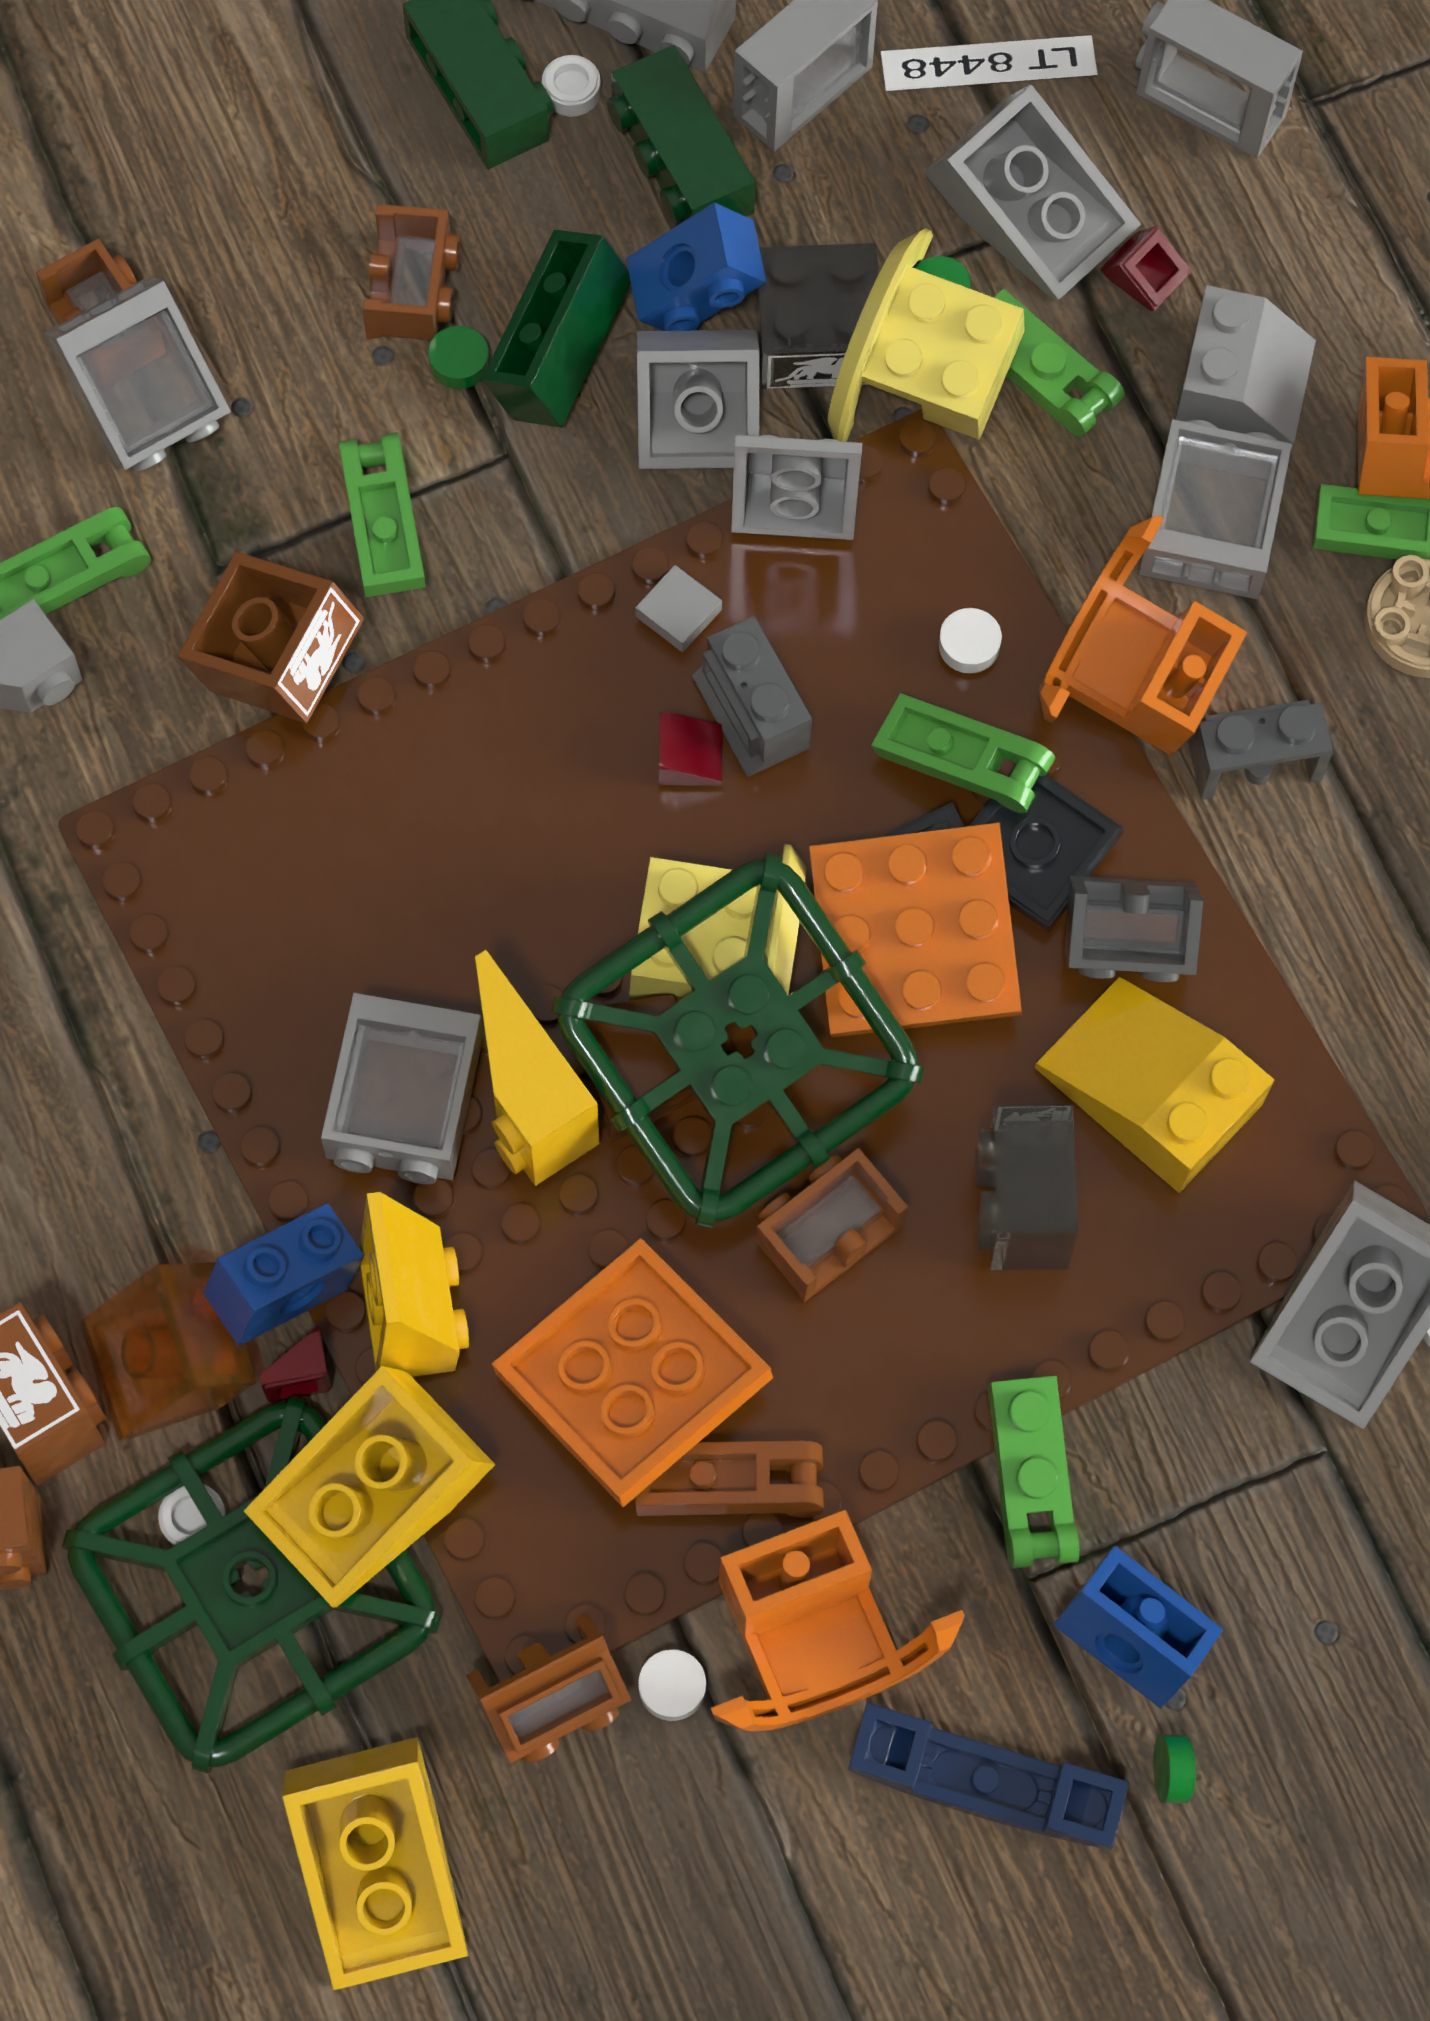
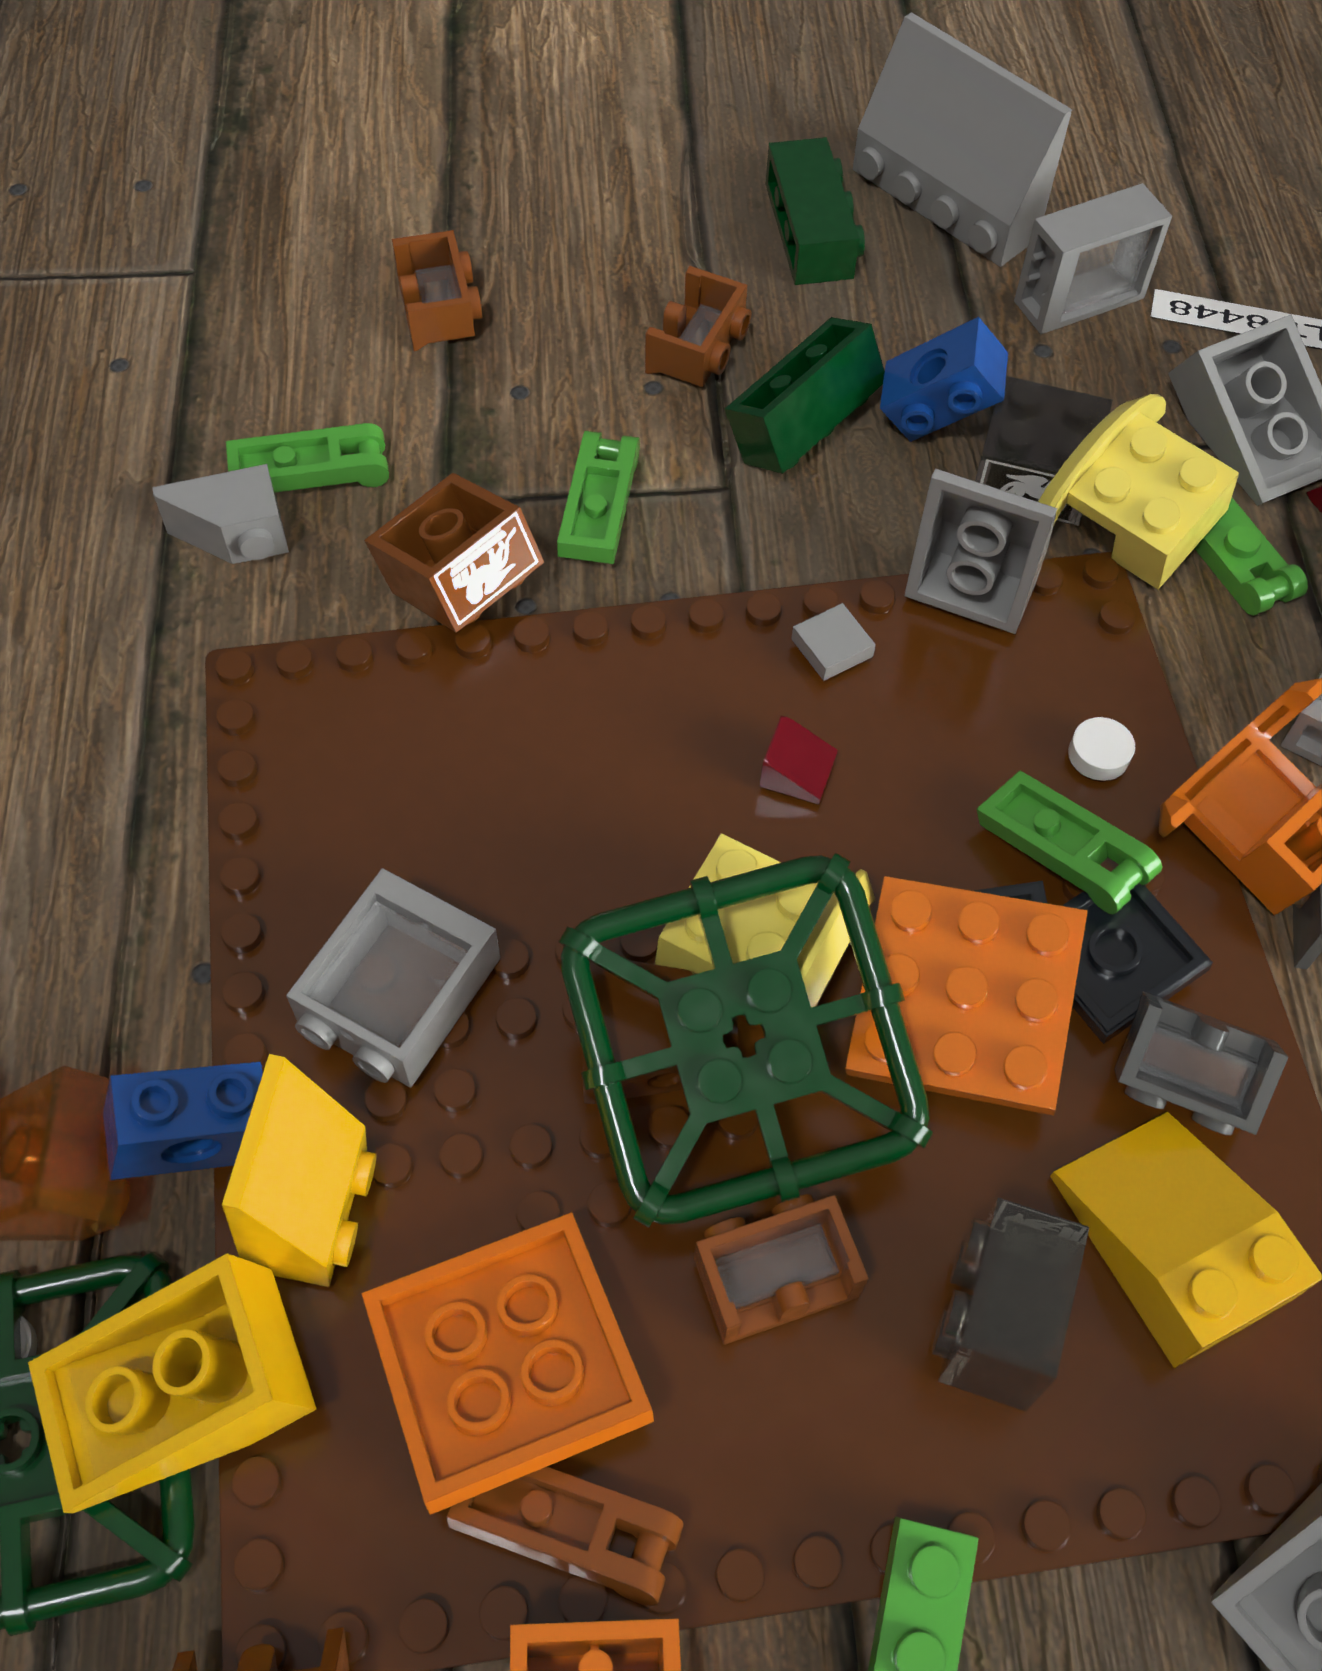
camera: 20 degrees right, 10 degrees down
(138, 374) = (436, 325): window -> none
(299, 1371) = (171, 1228): dark red slope -> none
(458, 357) = (709, 398): green tile -> none
(539, 1100) = (514, 1034): yellow slope -> none
(572, 85) = (887, 244): white tile -> none
(679, 137) = (962, 282): dark green brick -> none
(695, 396) = (895, 477): light grey slope -> none
(752, 697) = (876, 732): dark grey window -> none

